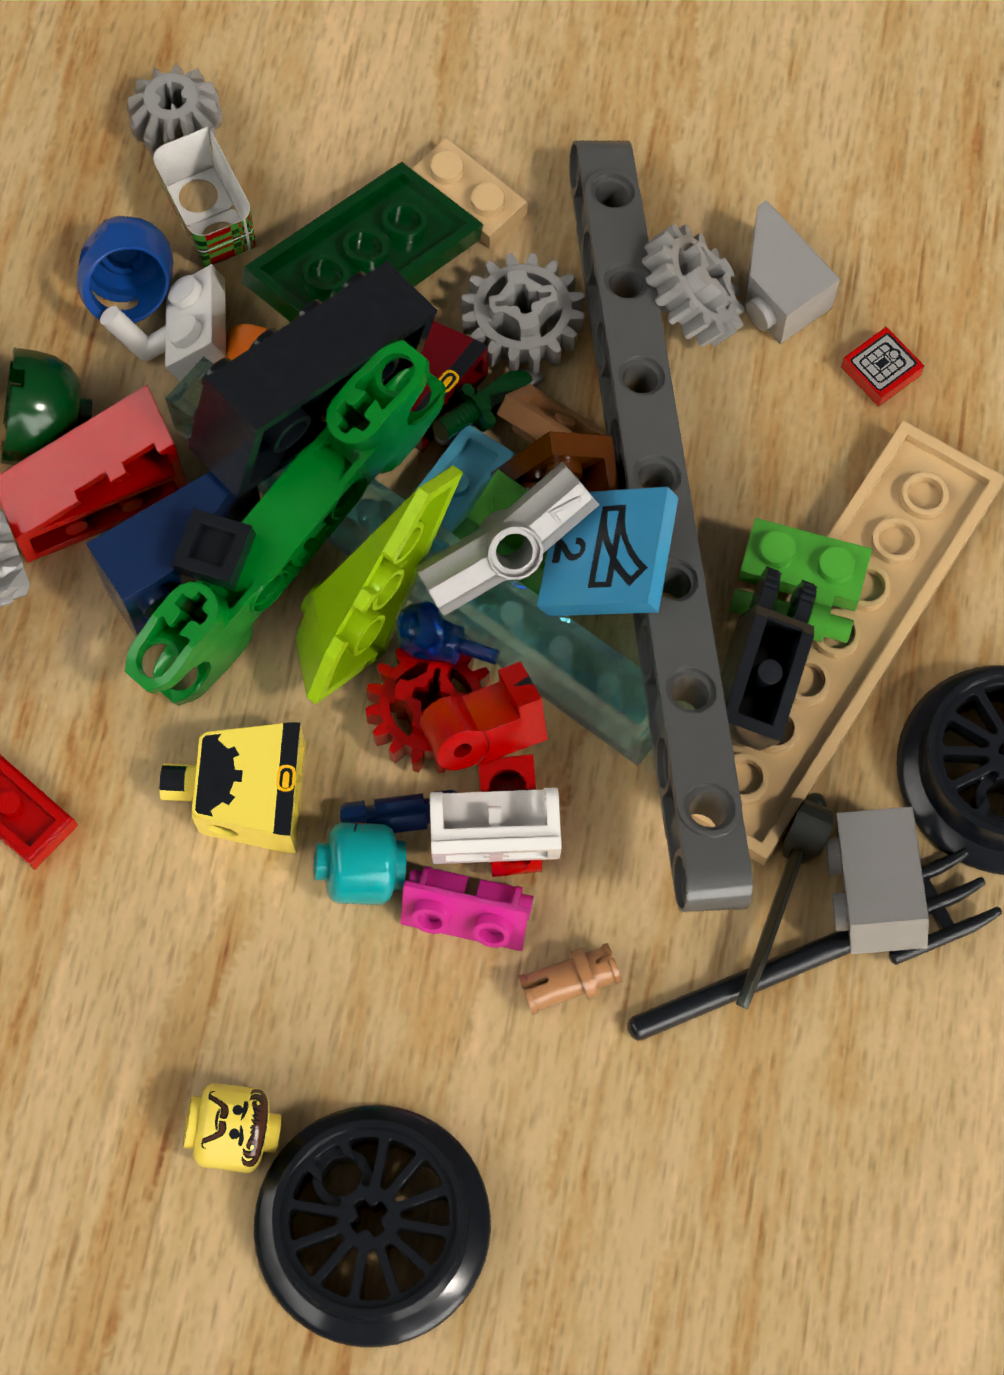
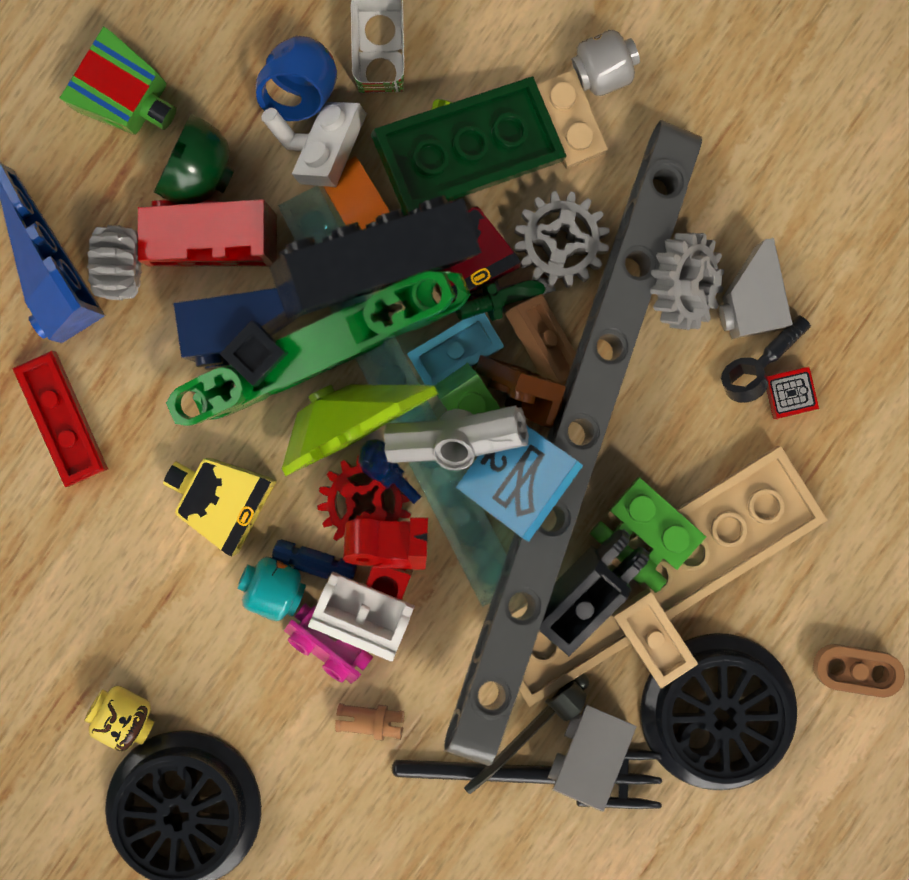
camera: 25 degrees right, 20 degrees up
(478, 114) = (605, 62): none -> light grey head
(827, 352) = (756, 367): none -> black piece
(876, 694) = (654, 638): none -> tan plate

